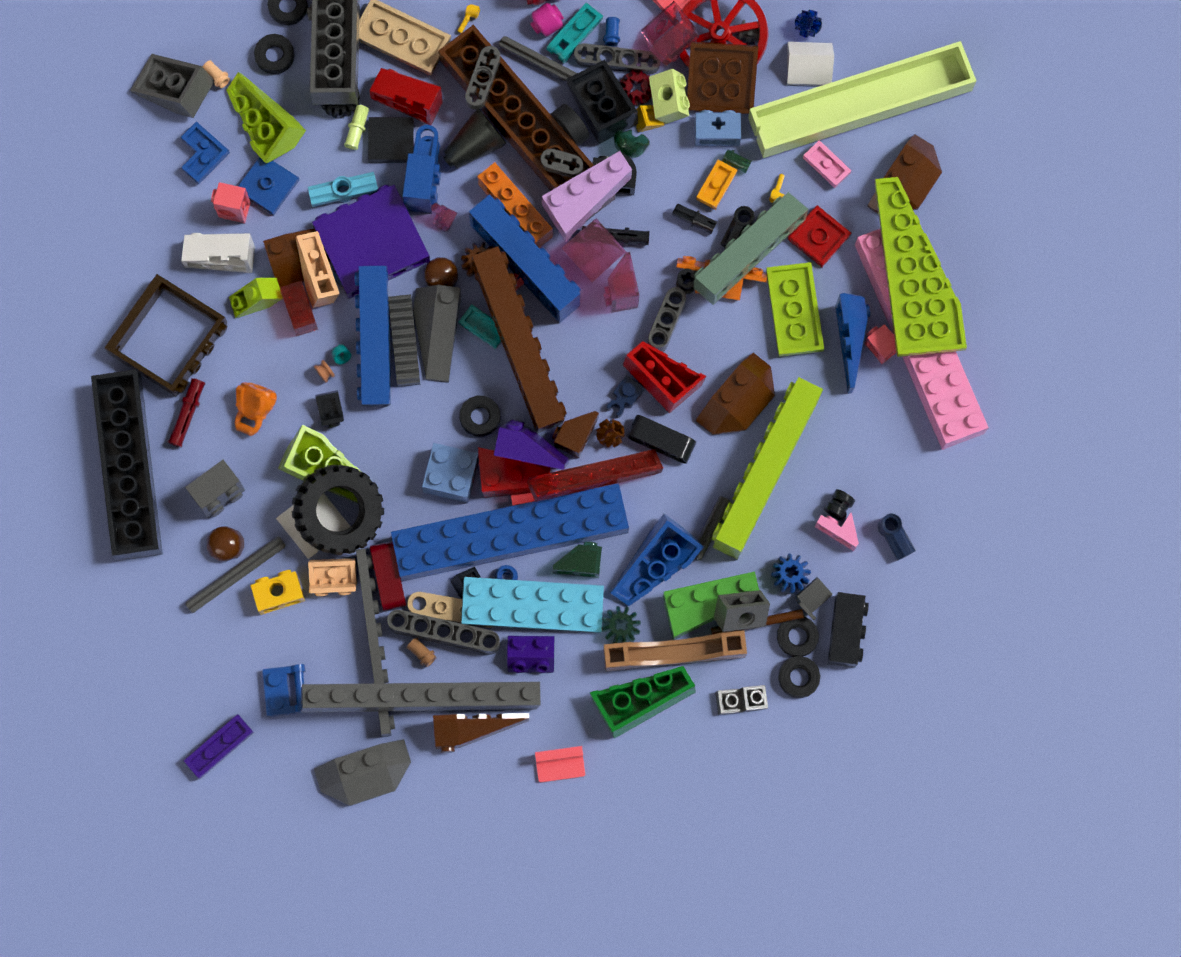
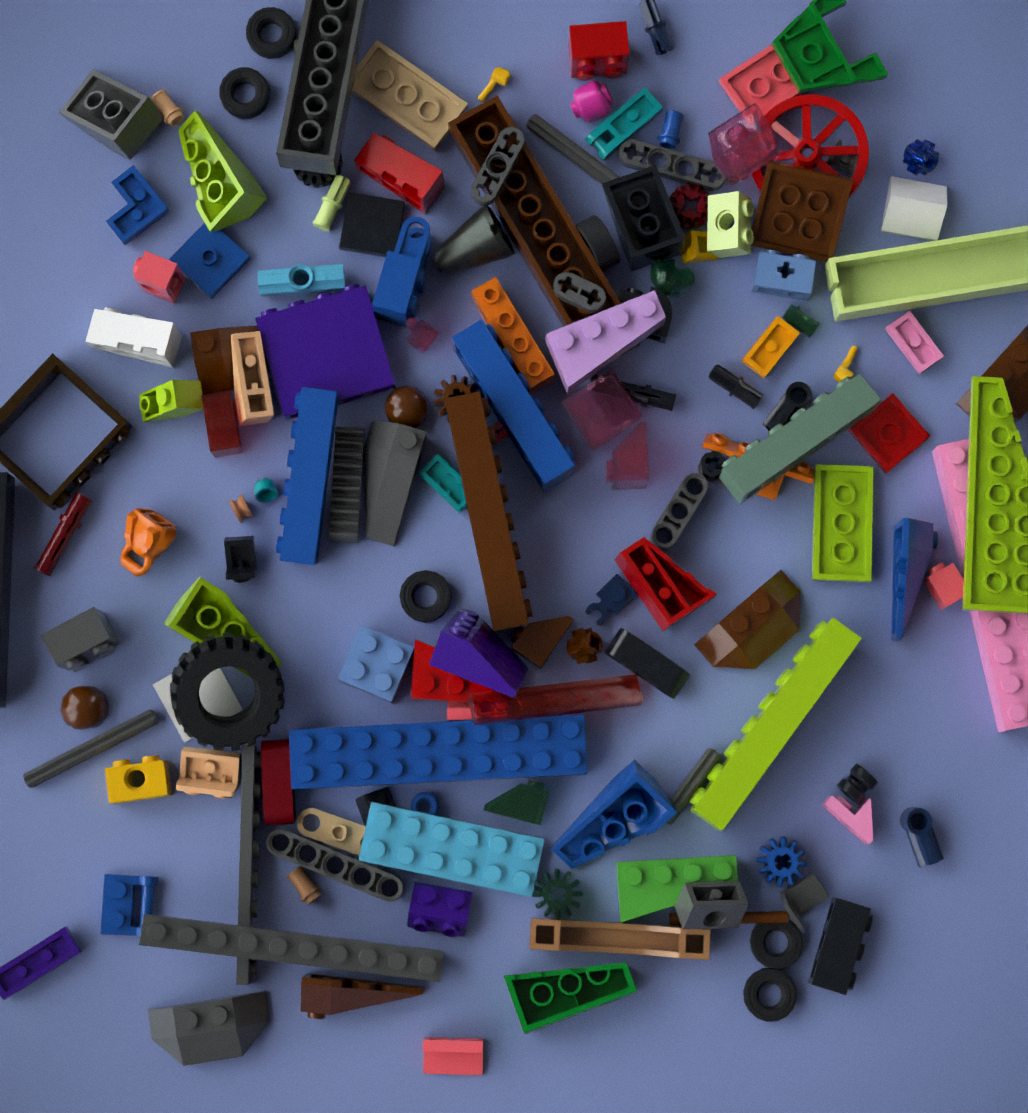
camera: 15 degrees right, 5 degrees up
(741, 700) = (692, 1012): slope -> none

